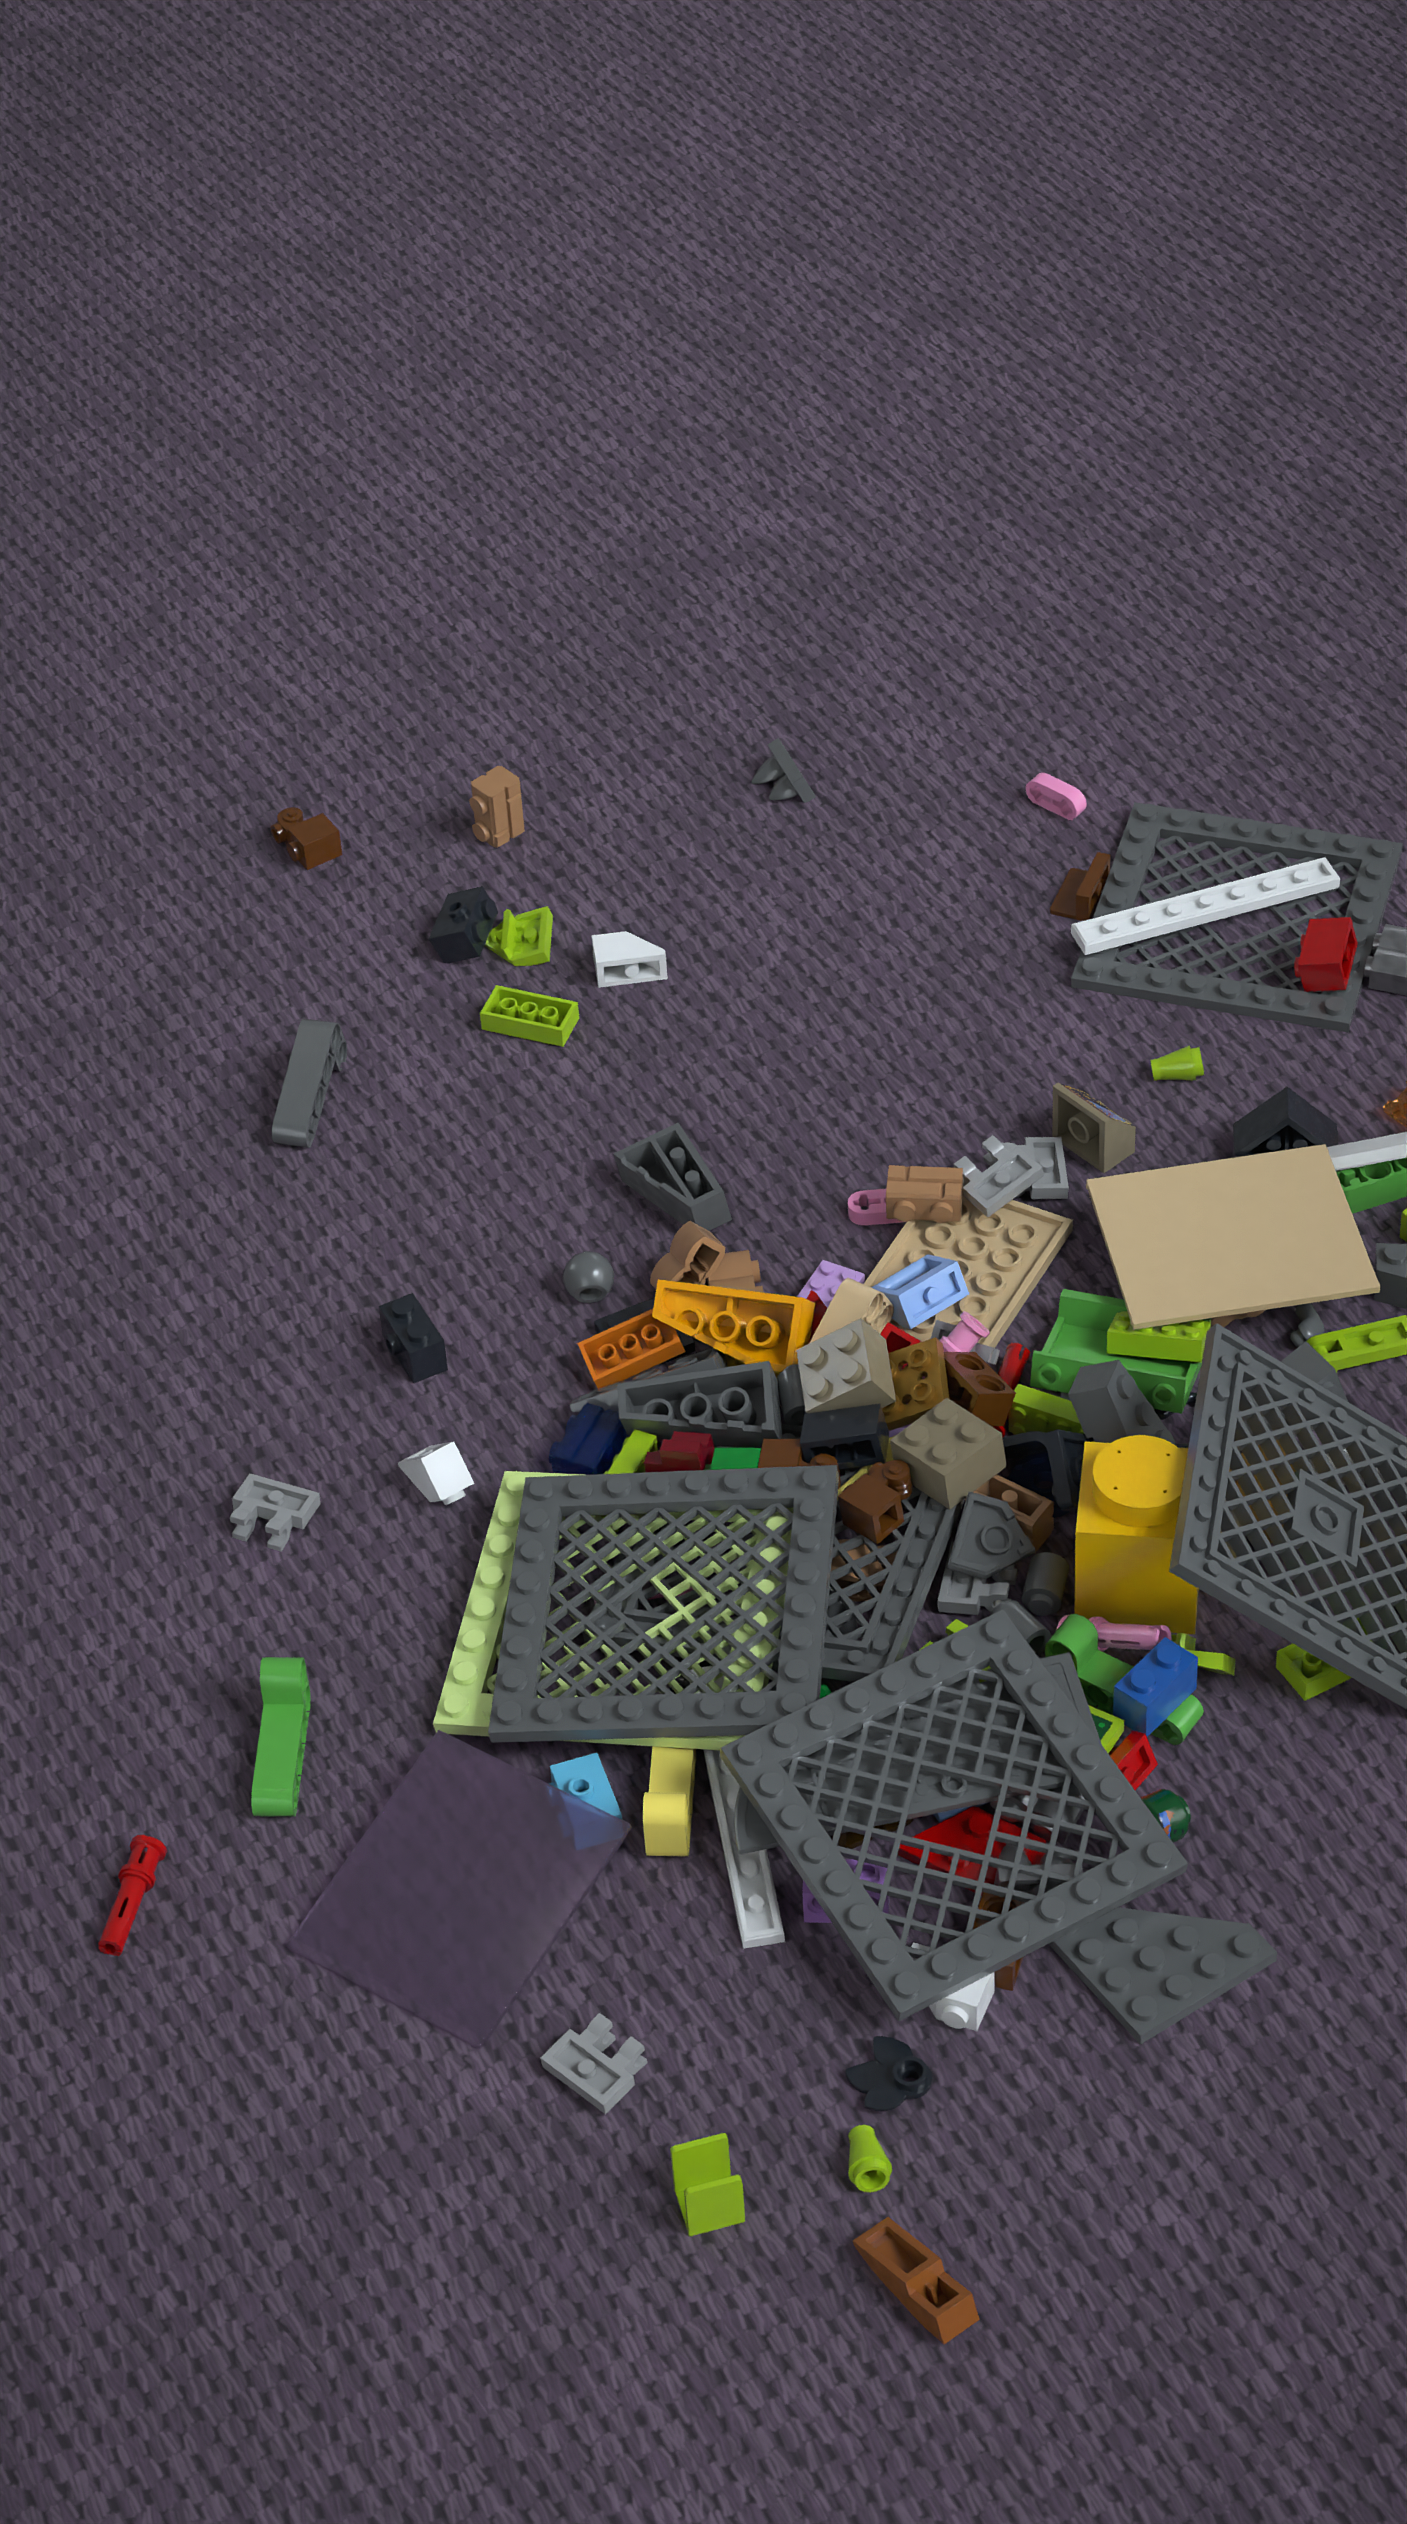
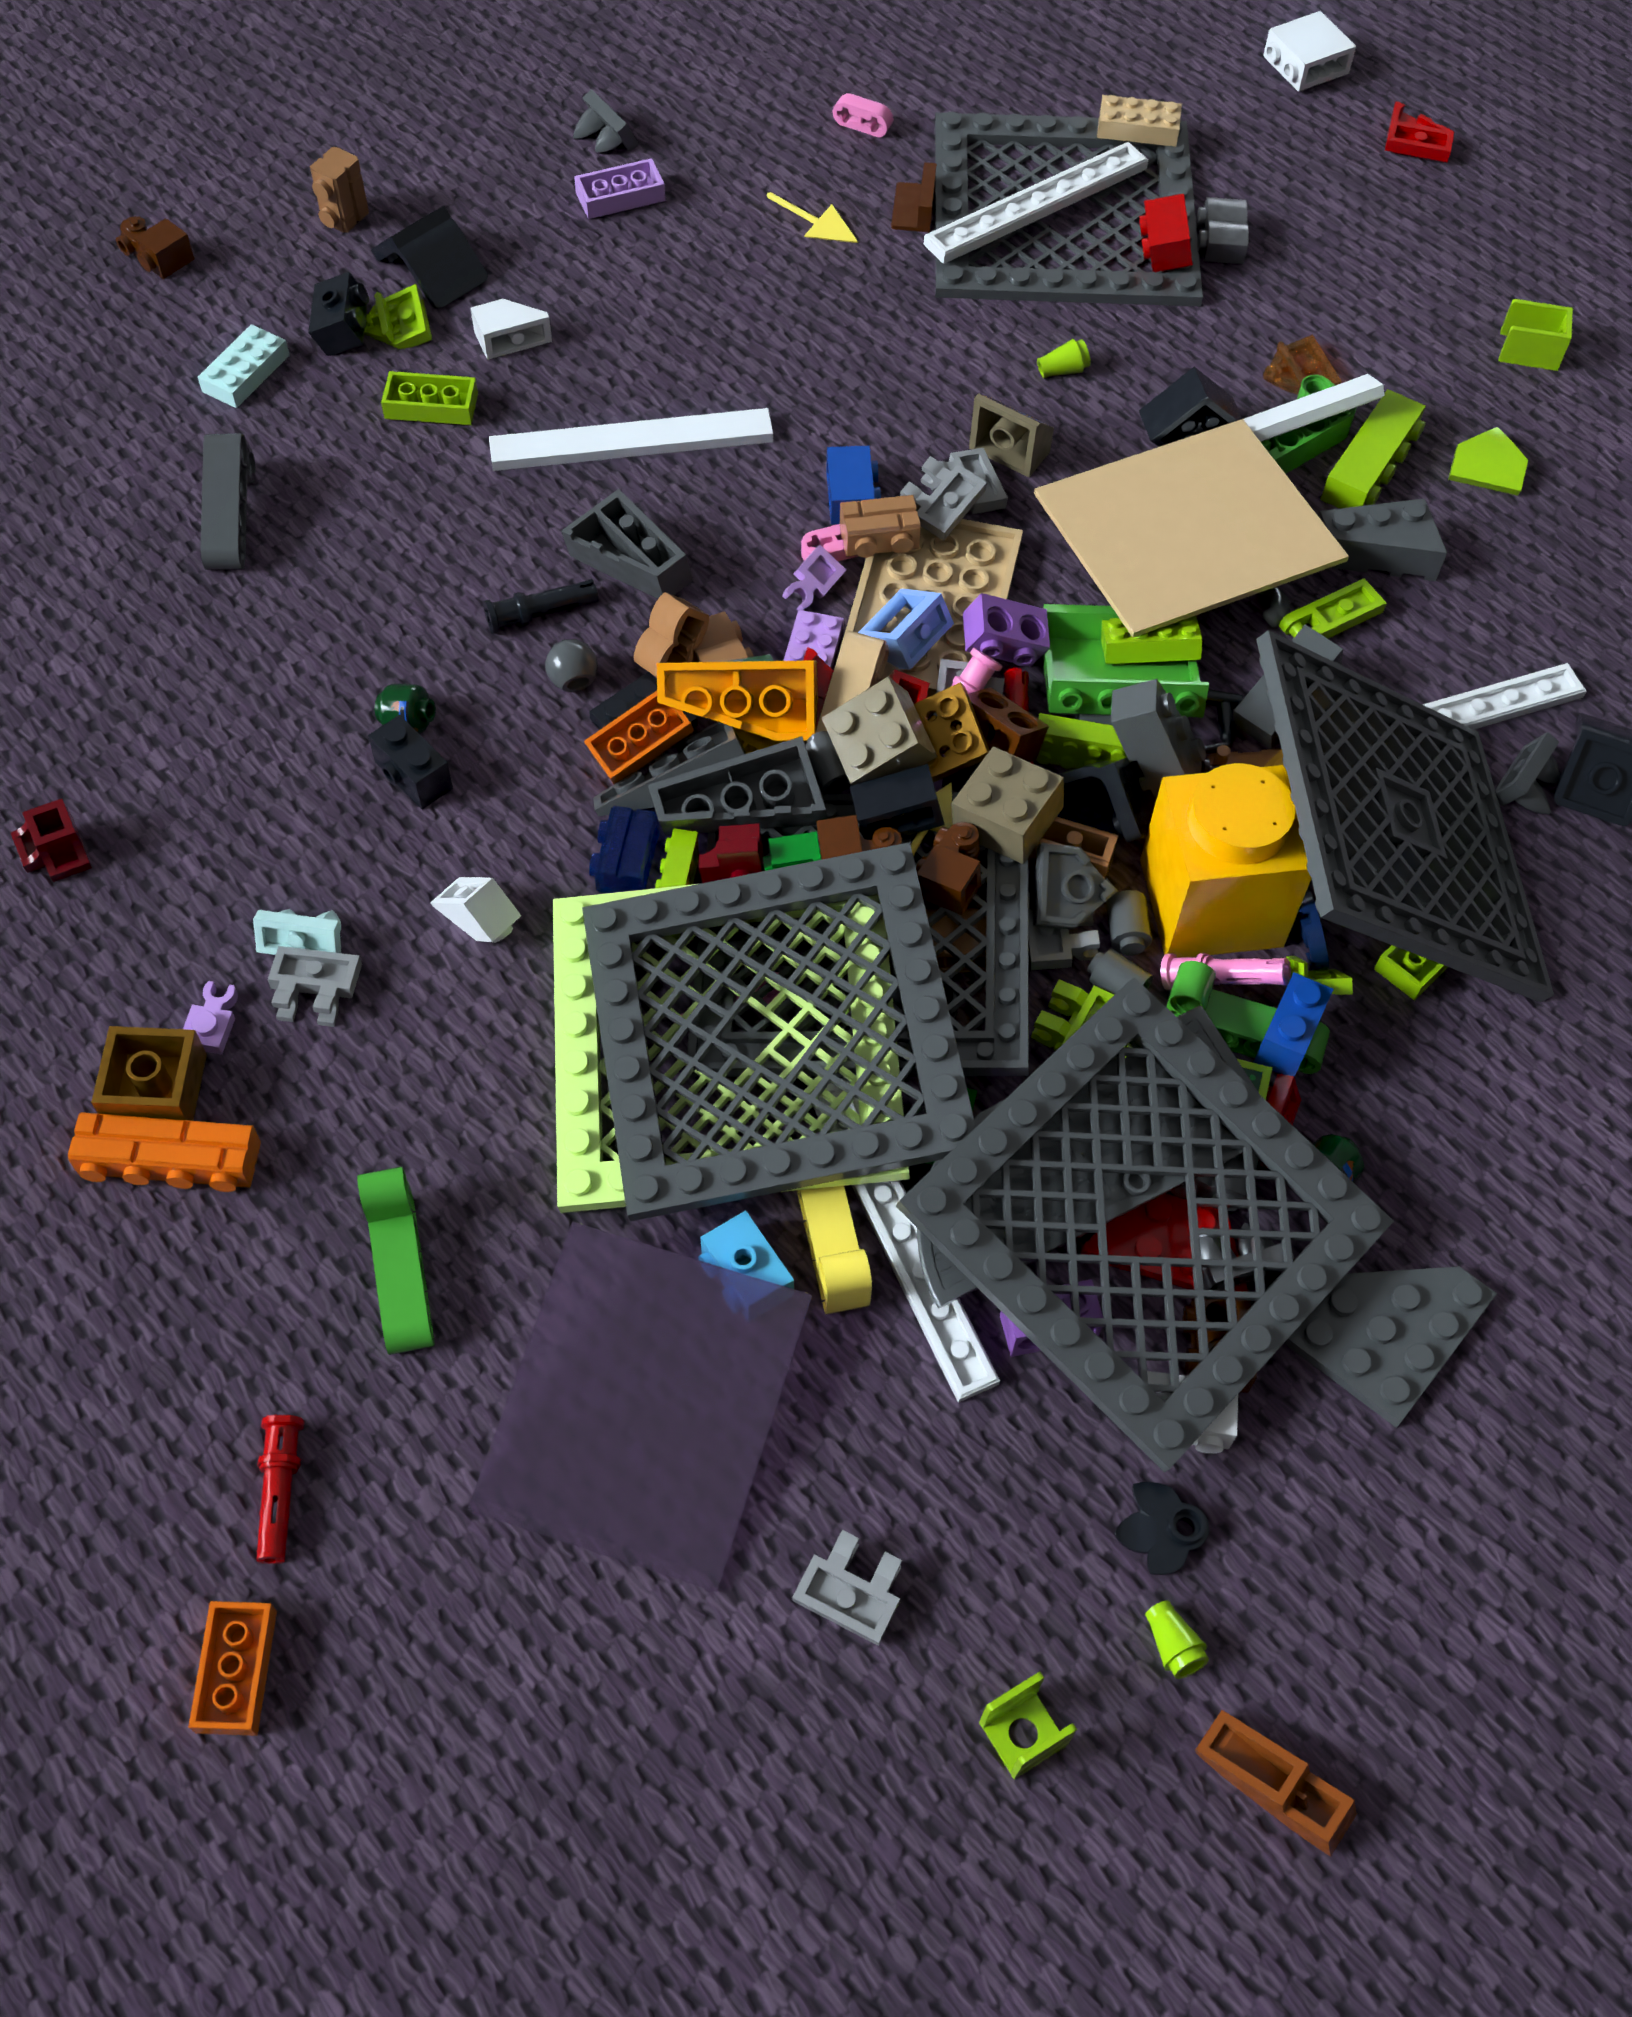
camera: 20 degrees left, 15 degrees up
(58, 2017) = (233, 1668): none -> orange piece
(73, 1354) = (51, 841): none -> dark red brick
(106, 1621) = (164, 1151): none -> orange brick
(108, 1559) = (150, 1073): none -> pearl gold brick
(173, 1530) = (213, 1020): none -> lavender plate
(268, 1463) = (296, 931): none -> light aqua tile
(360, 961) = (243, 366): none -> light aqua piece
(428, 1287) = (406, 700): none -> dark green head
(560, 1220) = (523, 607): none -> black pin
(574, 883) = (436, 257): none -> black piece
(715, 1081) = (630, 439): none -> white tile
(780, 839) = (620, 188): none -> lavender piece
(852, 1231) = (816, 576): none -> lavender plate
(918, 1142) = (850, 477): none -> blue brick
(984, 903) = (828, 226): none -> light yellow piece
(1016, 1306) = (1006, 629): none -> medium lavender brick
(1214, 1624) = (1312, 933): none -> dark blue tile
(1343, 837) = (1139, 120): none -> tan piece

